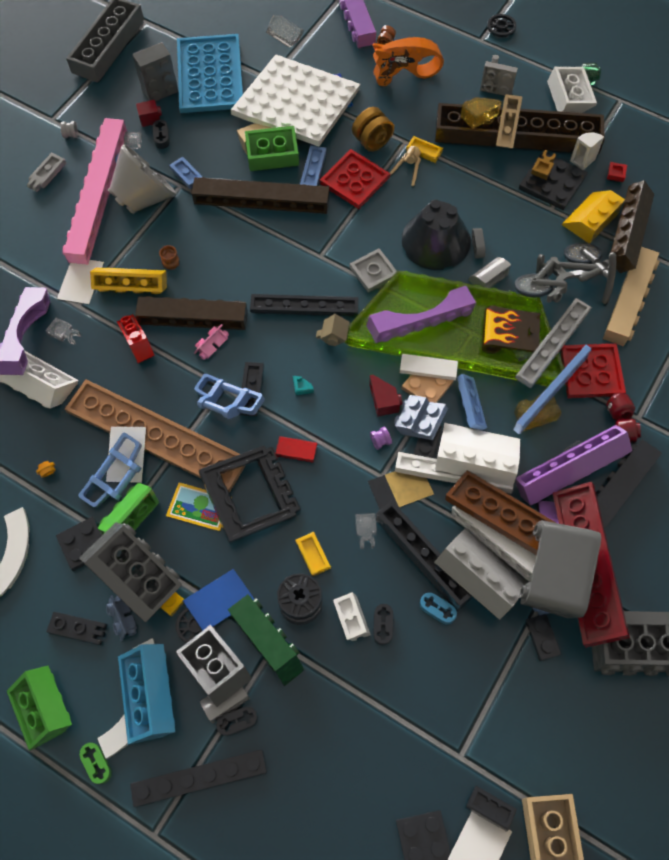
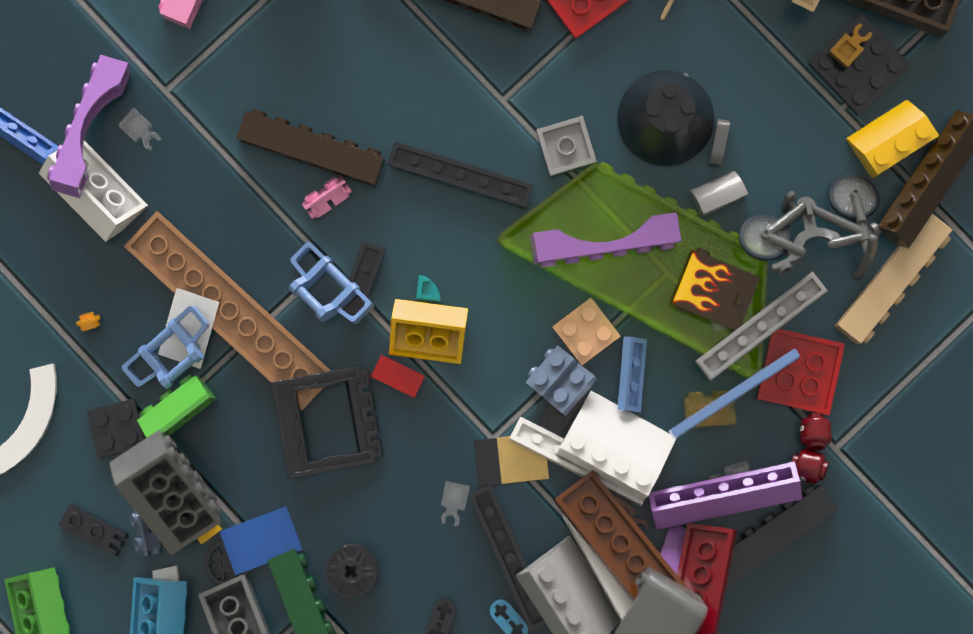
camera: 20 degrees right, 20 degrees up
(77, 282) = (175, 54): white sticker -> none
(128, 280) = (238, 77): yellow brick -> none
(135, 338) = (230, 165): red slope -> none
(169, 257) = (297, 49): dark orange wheel -> none
(193, 506) = (255, 415): sticker -> none
(310, 411) = (427, 331): none -> yellow slope
(313, 554) = (383, 515): yellow tile -> none
(334, 330) = (485, 232): dark tan brick -> none
(351, 617) = (406, 605): white hinge -> none
(380, 438) = (504, 392): medium lavender wheel -> none
(384, 396) = (525, 338): dark red slope -> none
(428, 367) = (592, 314): white tile -> none
(586, 149) = (919, 36): white brick -> none
(616, 172) = (952, 77): red plate -> none

